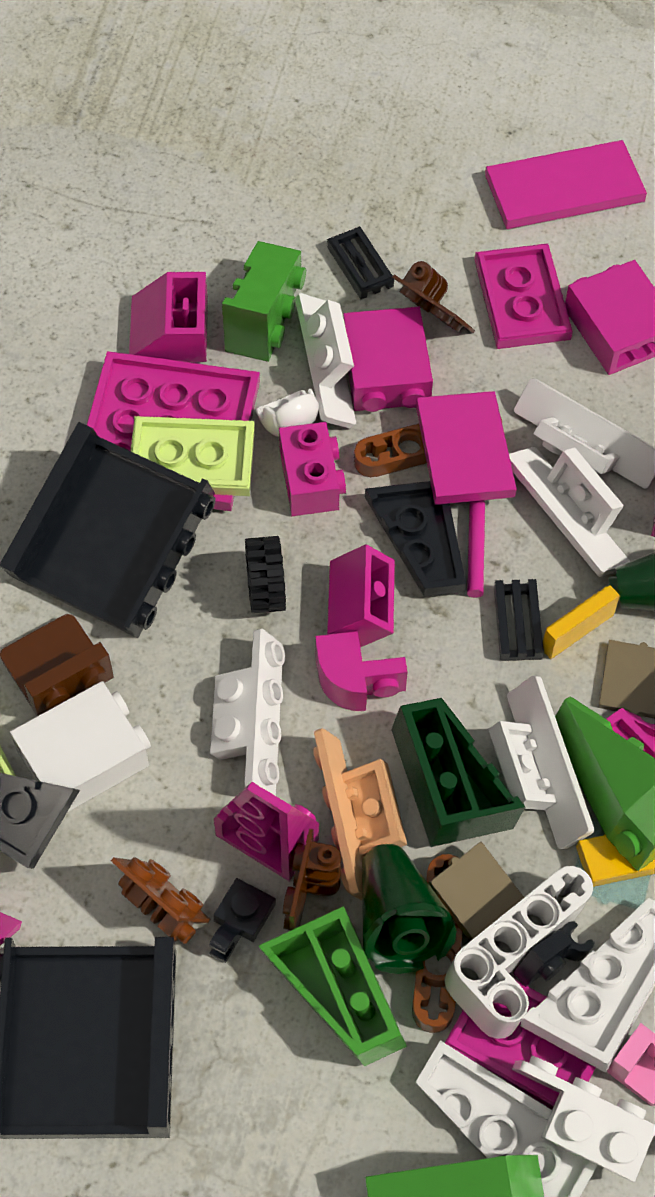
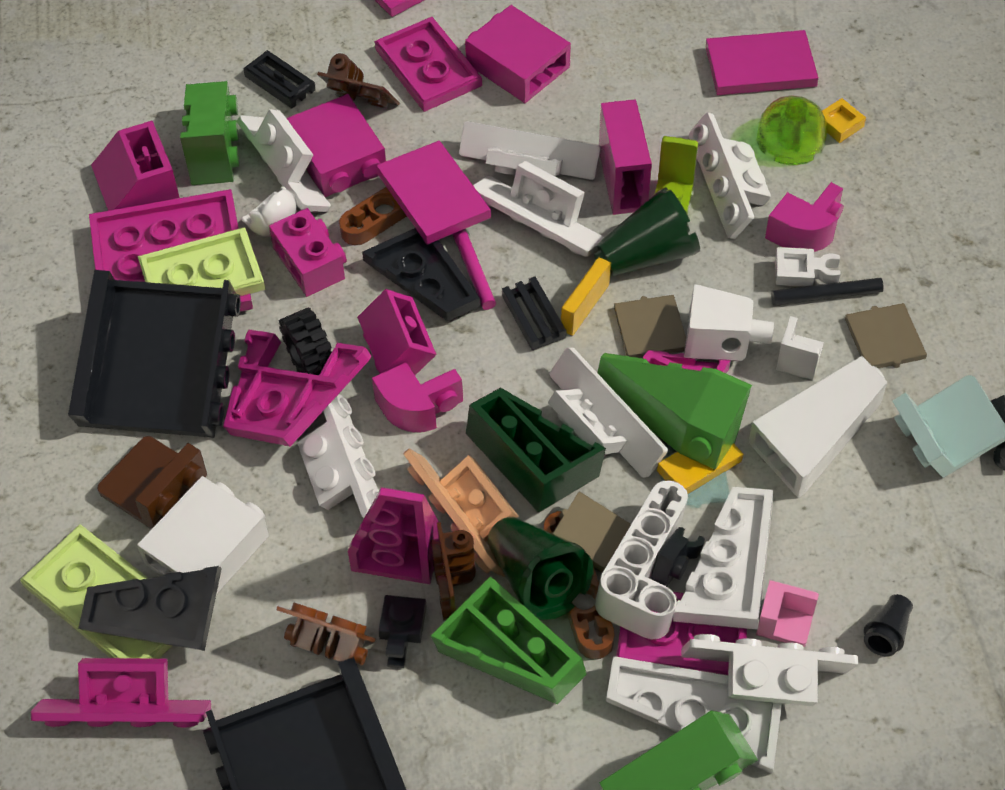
camera: 20 degrees left, 5 degrees down
(214, 629) = (281, 403): none -> dark pink wing

